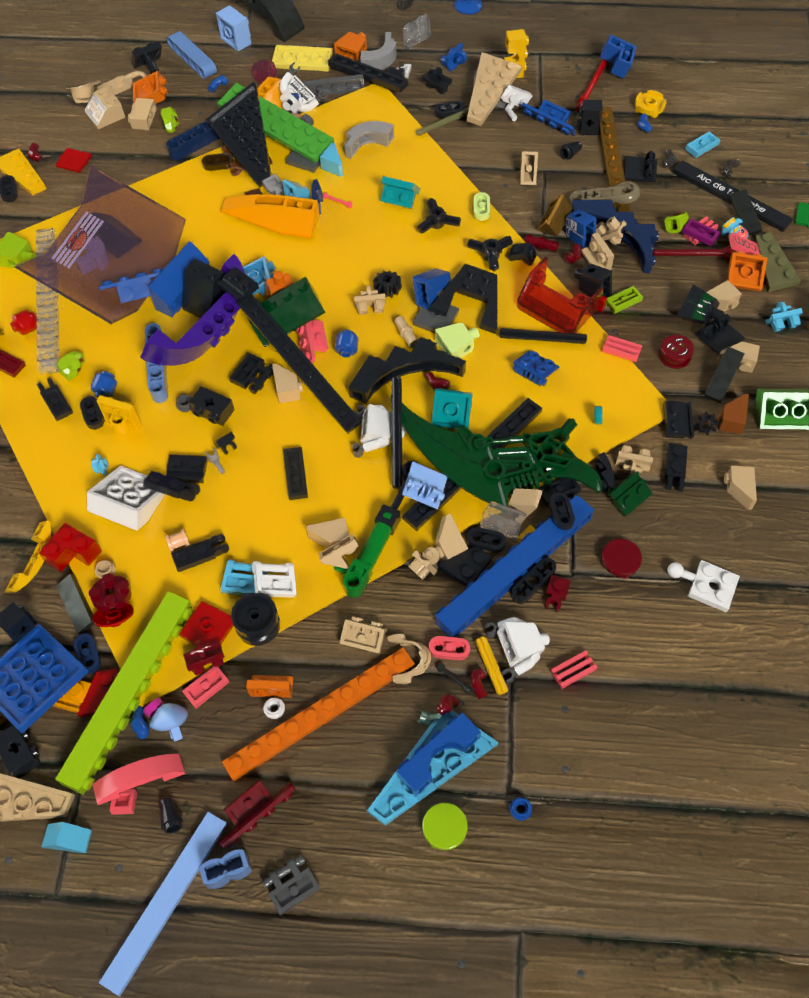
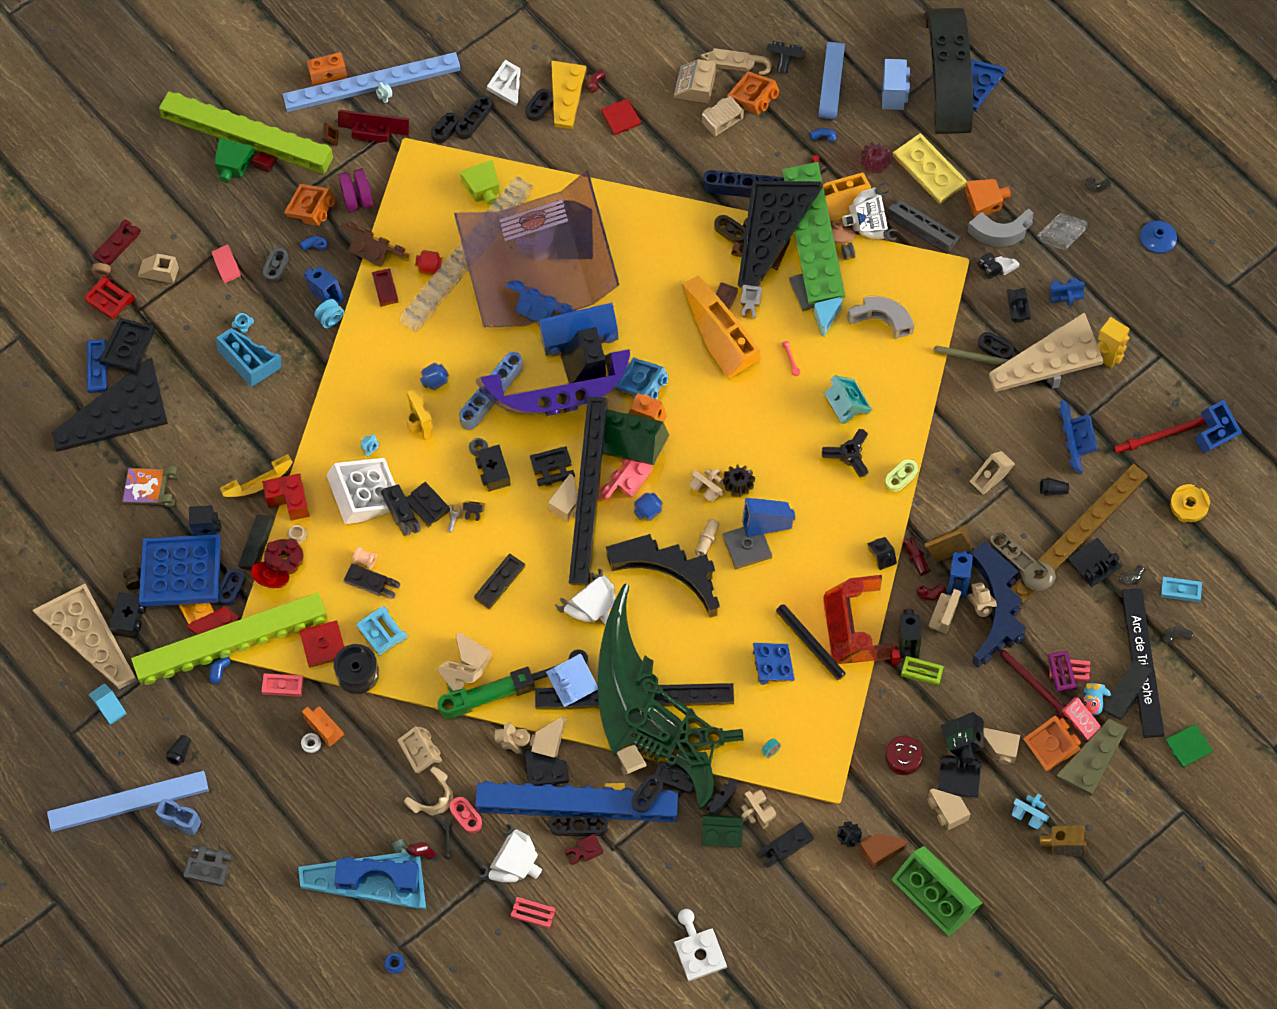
camera: 45 degrees right, 5 degrees up
(55, 400) = (389, 356): black hinge -> none
(70, 364) = (428, 334): lime rock -> none
(83, 93) = (696, 45): tan piece -> none
(91, 414) = (400, 392): black plate -> none
(125, 803) = (162, 711): coral plate -> none
(136, 774) = (185, 704): coral slope -> none
(152, 707) = (236, 668): dark pink tile -> none
(169, 119) = (738, 143): lime rock -> none
(169, 718) = (237, 684): light blue piece -> none
(204, 655) = (298, 662): dark red hips -> none
(237, 284) = (602, 382): black plate -> none
(251, 807) = (231, 793): dark red bracket -> none
(274, 584) = (393, 655): white plate -> none
(295, 189) = (757, 324): medium azure slope -> none
(317, 193) = (775, 339): dark blue slope -> none
(317, 714) = (337, 775): orange plate -> none
(369, 73) = (963, 242): black plate -> none
(397, 473) = (599, 616): black axle -> none
(437, 382) = (680, 604): dark red arm -> none
(445, 826) = (335, 925): lime tile -> none
(451, 408) = (662, 638): teal bracket -> none
(456, 339) = (735, 582): yellowish green torso -> none
(474, 284) = (809, 544): black wing -> none
(476, 676) = (462, 852): dark red arm -> none
(486, 540) = (579, 764): black plate -> none
(491, 249) = (857, 532): black bush -> none
(491, 665) = (481, 854): yellow axle -> none
(502, 519) = (603, 760): clear panel -> none
(515, 96) = (1063, 388): white plate -> none
(590, 117) = (1103, 470): black brick -> none
(621, 558) = (658, 870): dark red tile -> none
(622, 346) = (861, 695): coral tile -> none
(643, 124) = (1154, 519): blue arm -> none
(676, 222) = (1055, 642): lime rock -> none
(678, 419) = (832, 810): black plate -> none
(724, 374) = (912, 809): pearl dark grey tile -> none
(742, 485) = (815, 905): tan slope -> none

